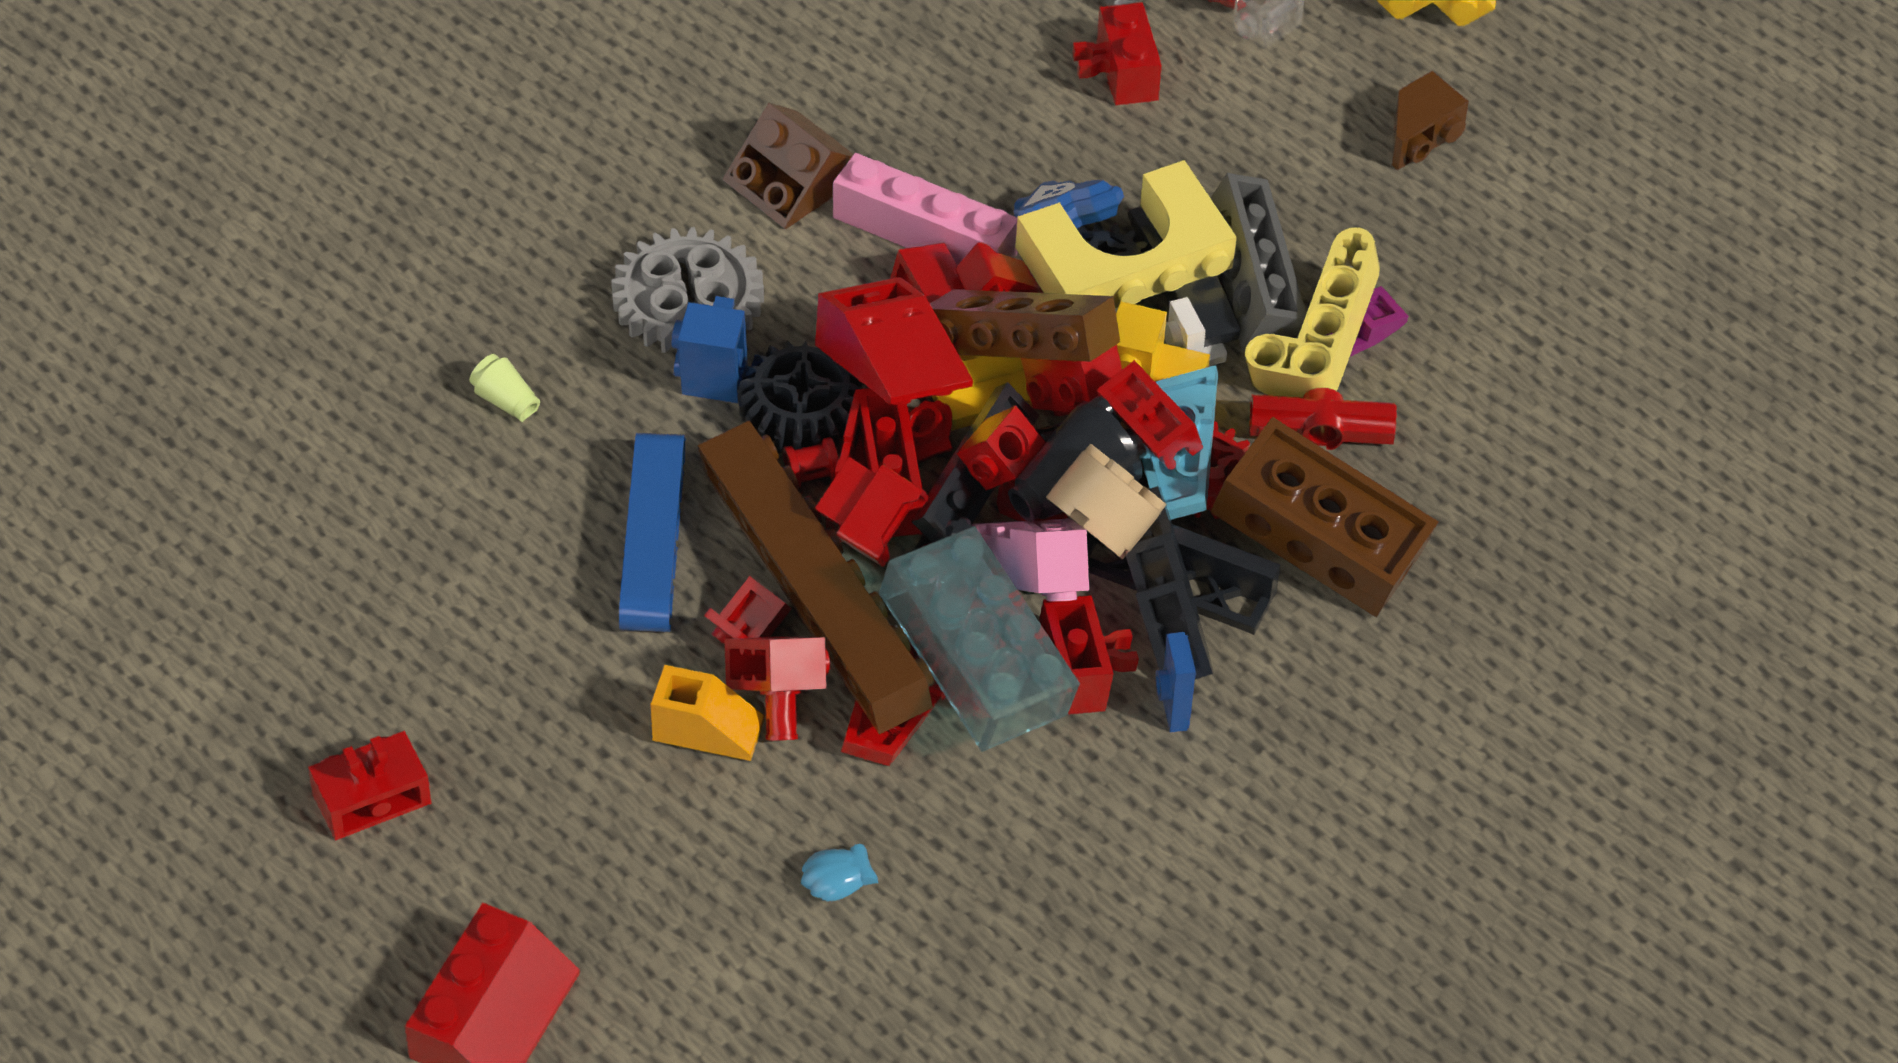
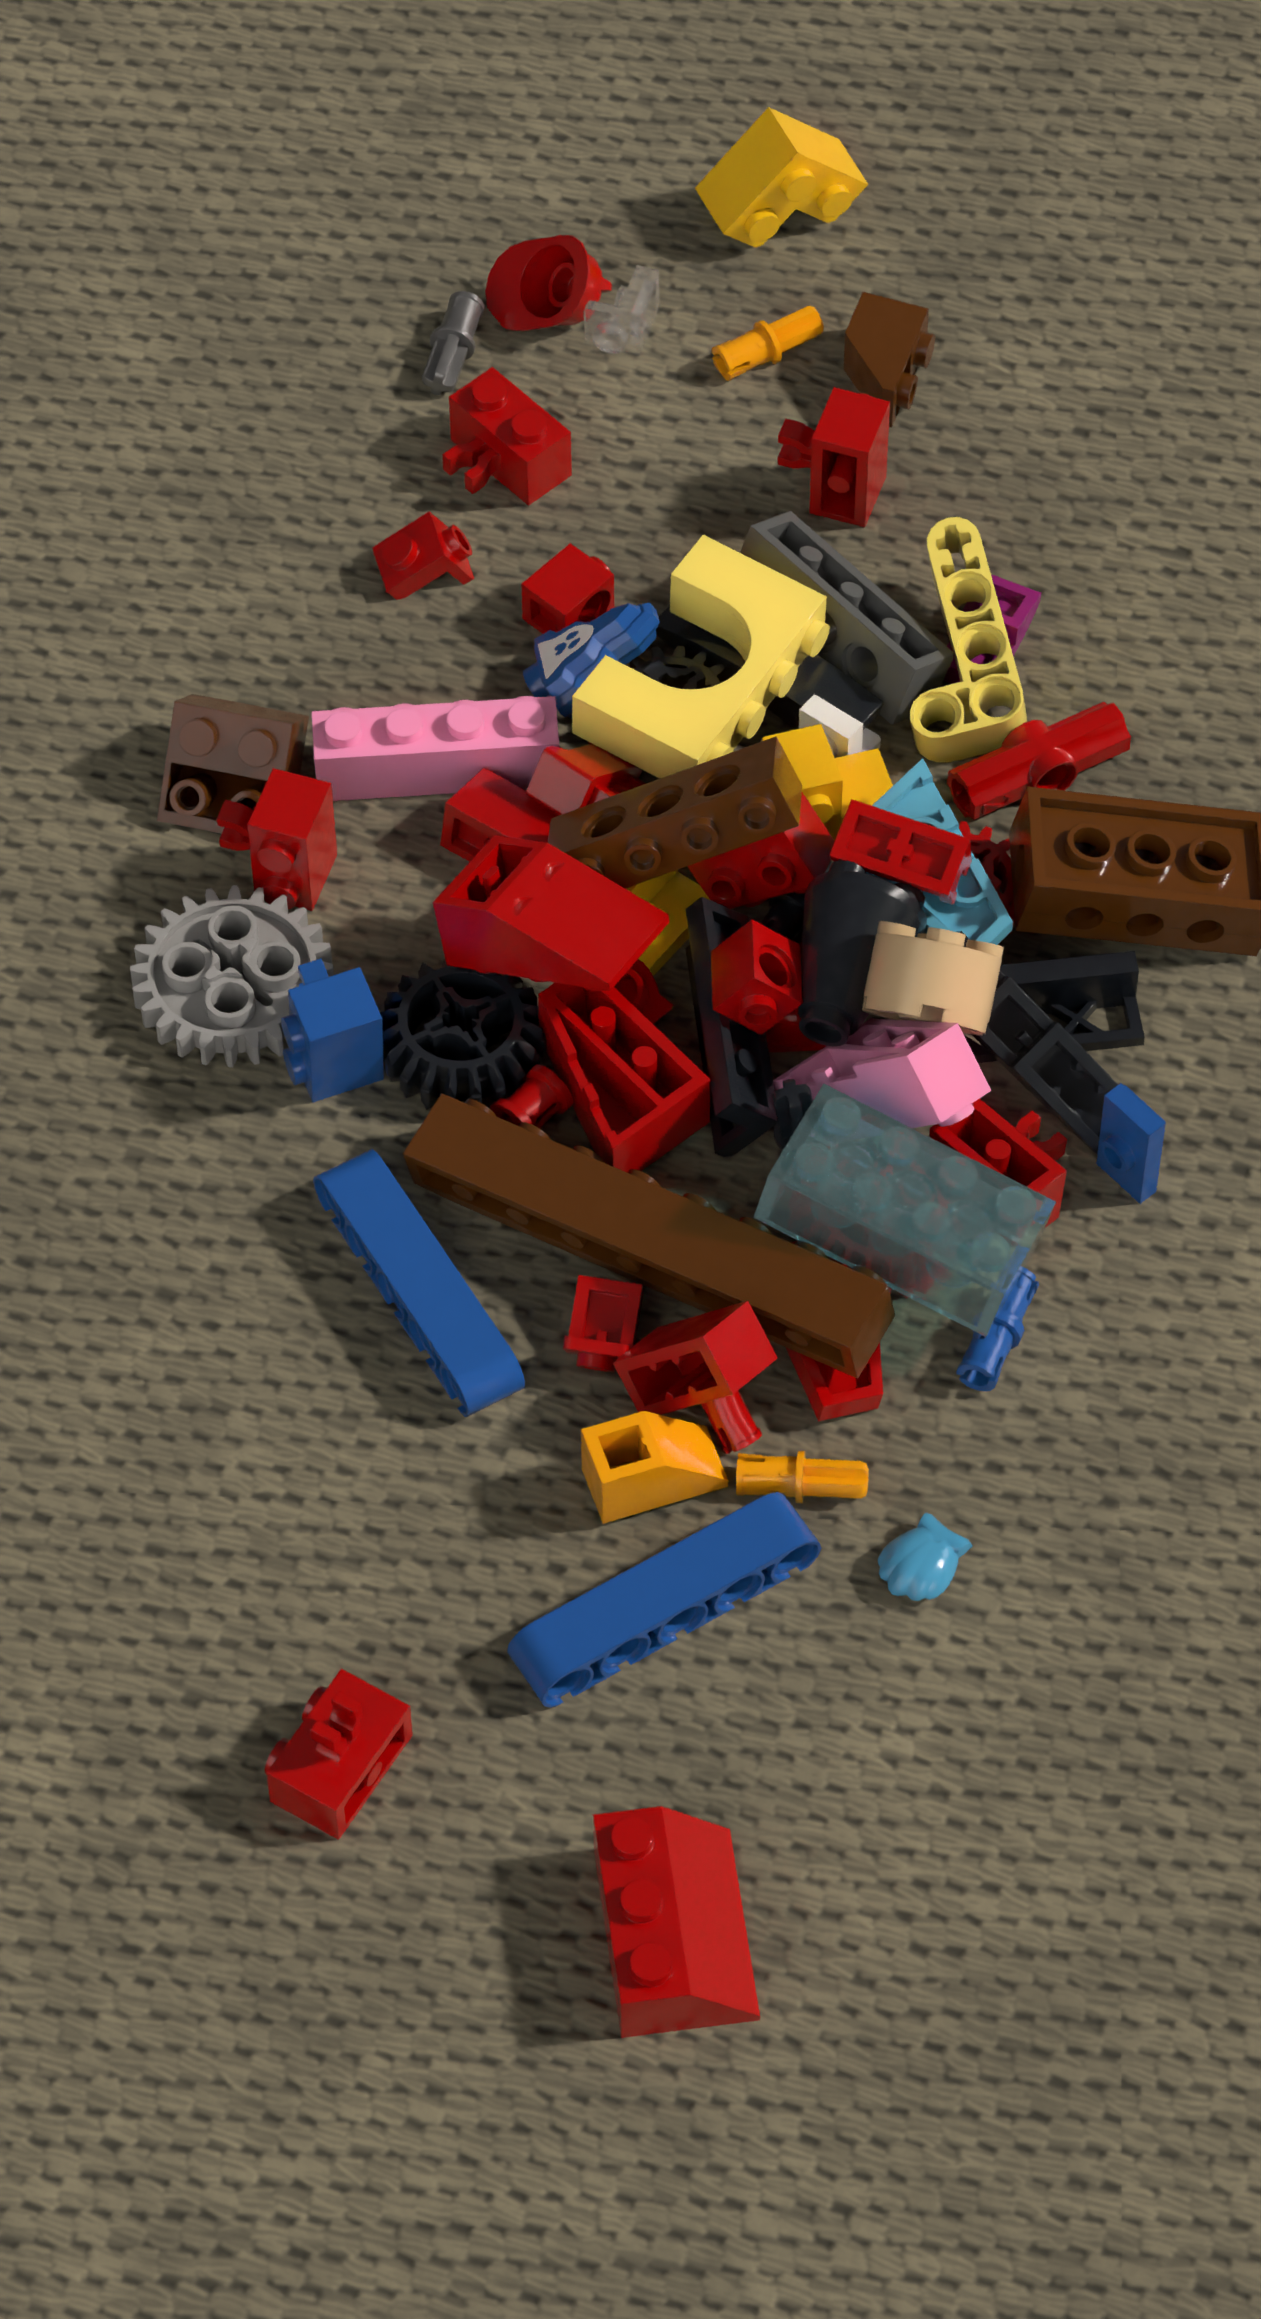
camera: 30 degrees left, 5 degrees up
(503, 386) = (113, 1203): yellowish green cone -> none
(649, 802) = (662, 1596): none -> blue beam
(781, 222) = (287, 837): none -> red brick
(798, 778) = (800, 1476): none -> light orange axle
(869, 507) = (669, 1123): red piece -> none
(1003, 759) = (987, 1354): none -> blue pin
(1014, 98) = (421, 555): none -> red bracket
(1090, 160) = (567, 591): none -> red brick
(1335, 165) = (844, 455): none -> red brick
(1352, 77) = (766, 342): none -> light orange axle

